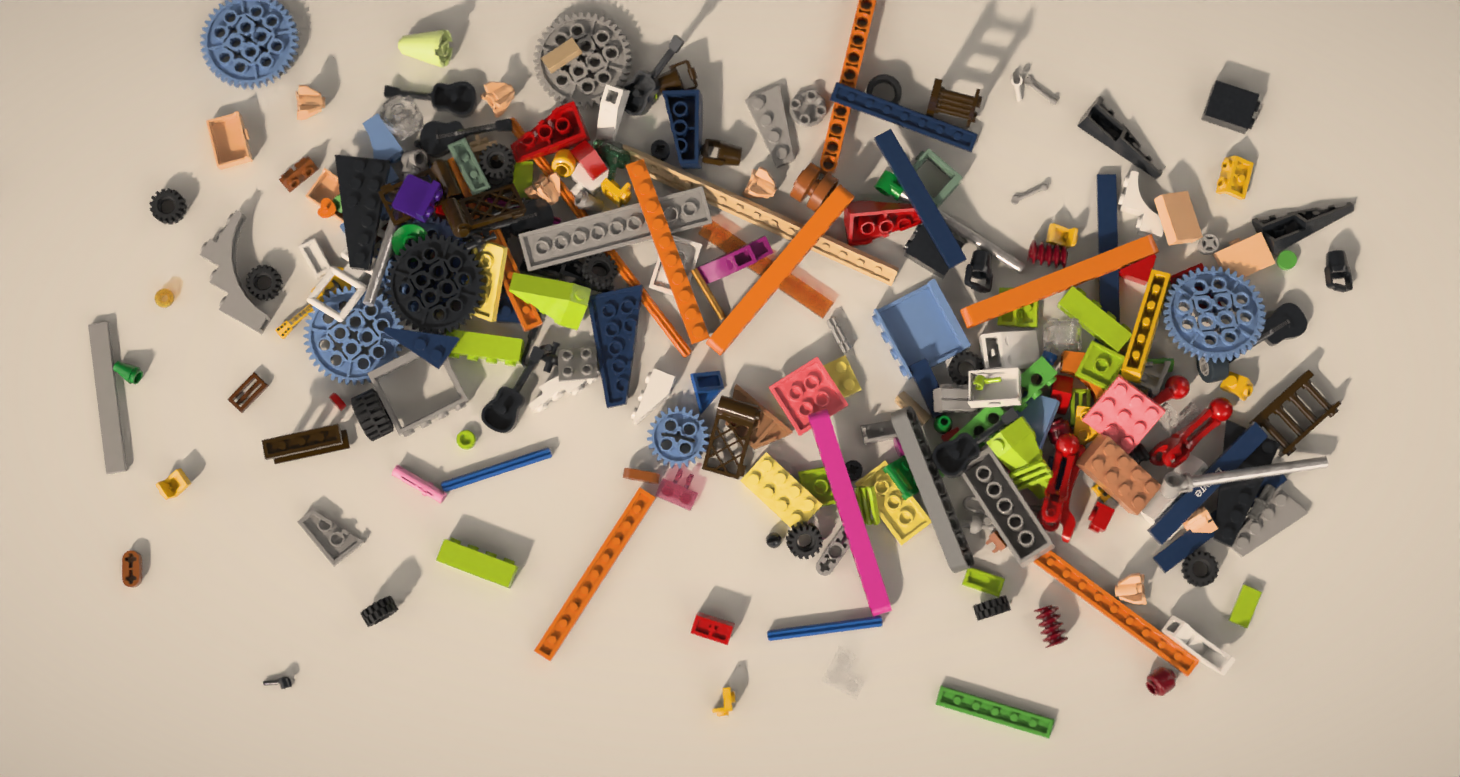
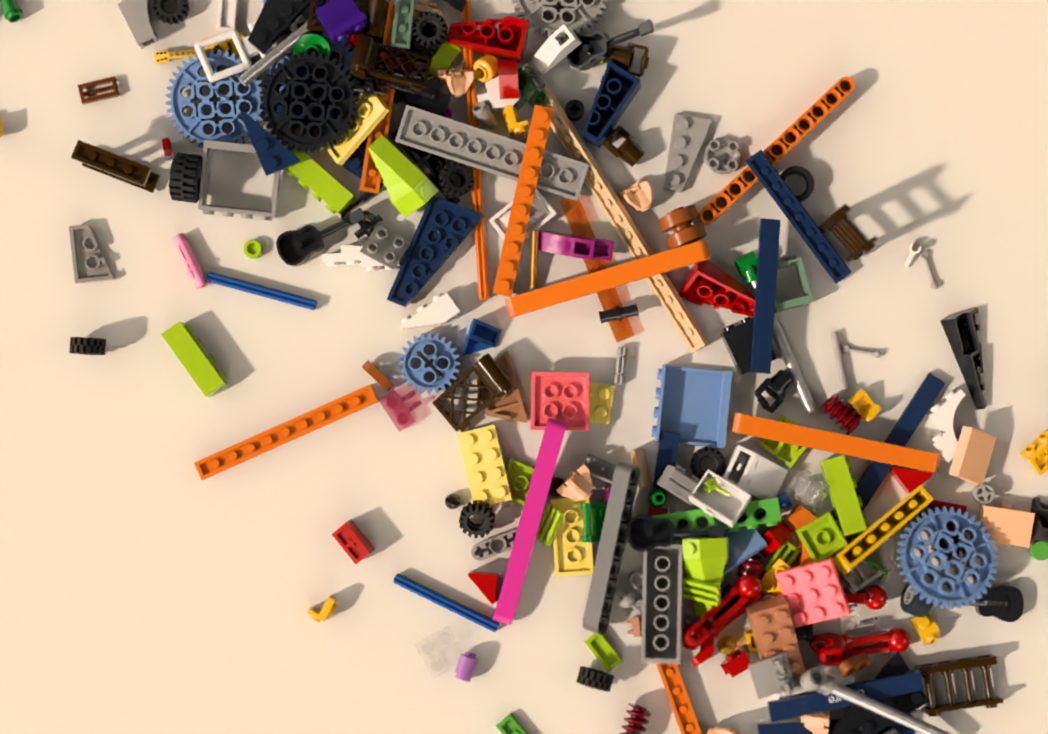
camera: 25 degrees right, 5 degrees up
(809, 292) = (618, 313): none -> black pin
(847, 589) = (486, 583): none -> red slope
(869, 456) = (578, 485): none -> light nougat brick
(877, 669) = (466, 666): none -> medium lavender brick
(1017, 213) = (839, 361): none -> light grey bar
(1082, 508) = (724, 642): none -> clear yellow plate
(1136, 506) = (772, 676): none -> light grey hinge
(1197, 452) = (854, 664): none -> dark orange beam

